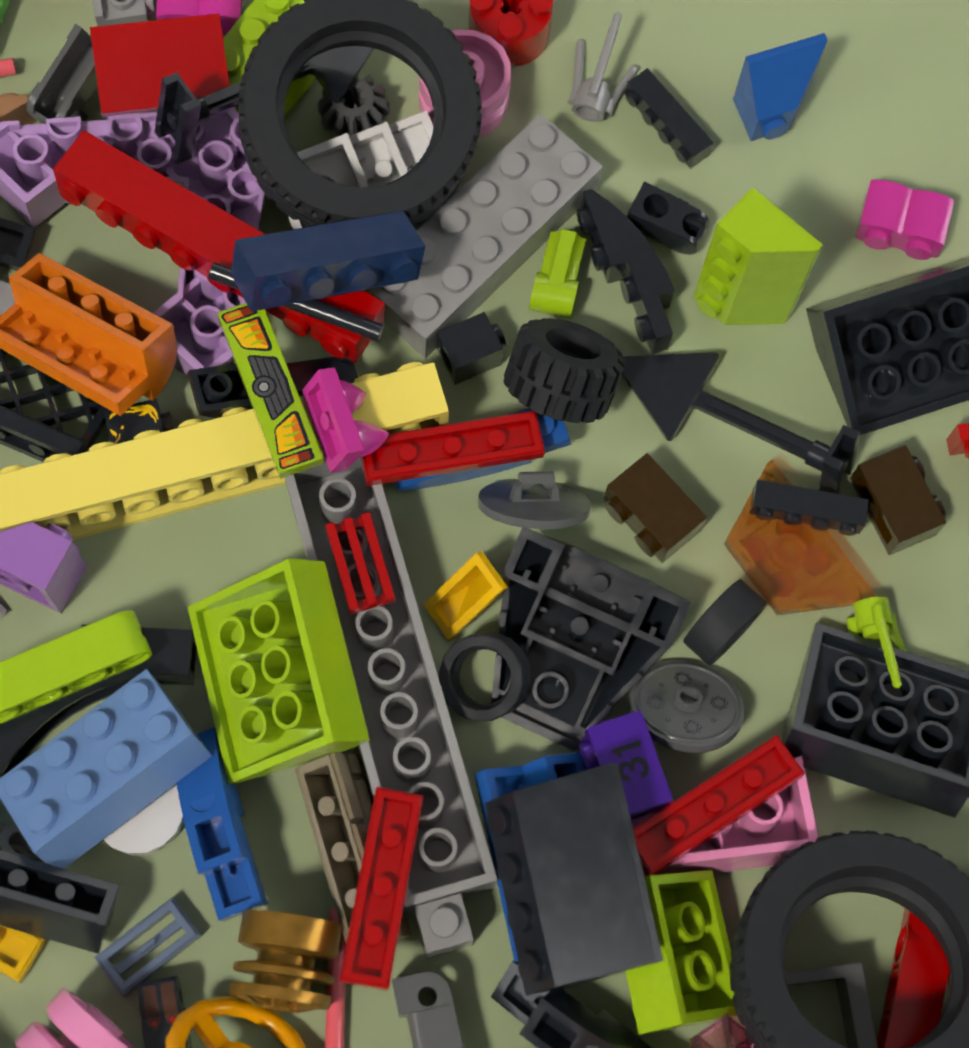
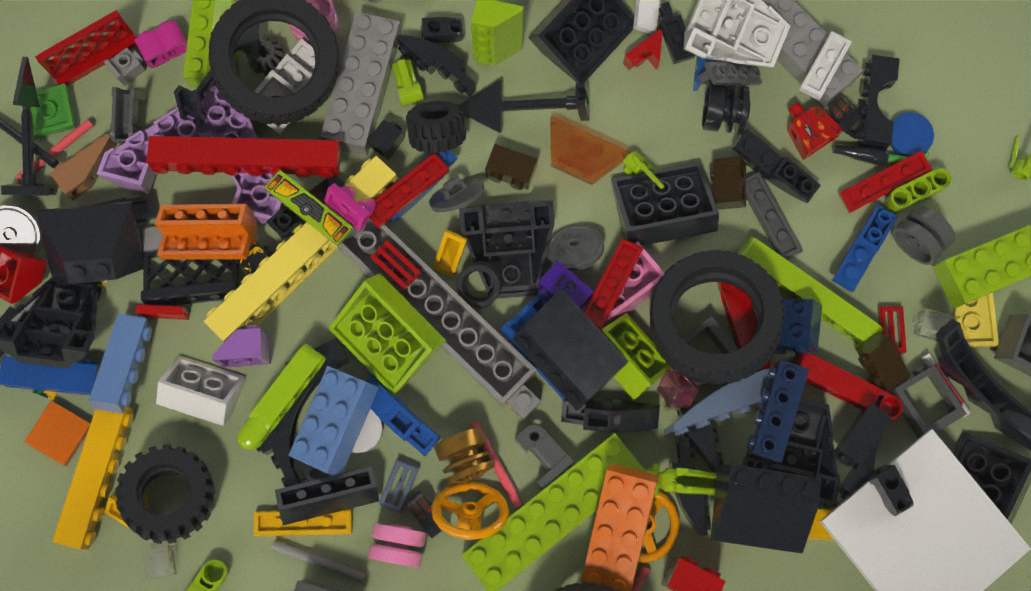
camera: 25 degrees left, 5 degrees up
(137, 56) = (155, 85): red tile -> none
(313, 308) = (297, 162): black bar -> none
(326, 260) = (301, 135): dark blue brick -> none
(339, 818) = (465, 393): dark tan brick -> none
(381, 889) = (488, 401): red tile -> none
(724, 622) = (571, 201): black tyre -> none
(808, 507) = (580, 128): black piece -> none
(899, 499) = (617, 103): dark brown brick -> none

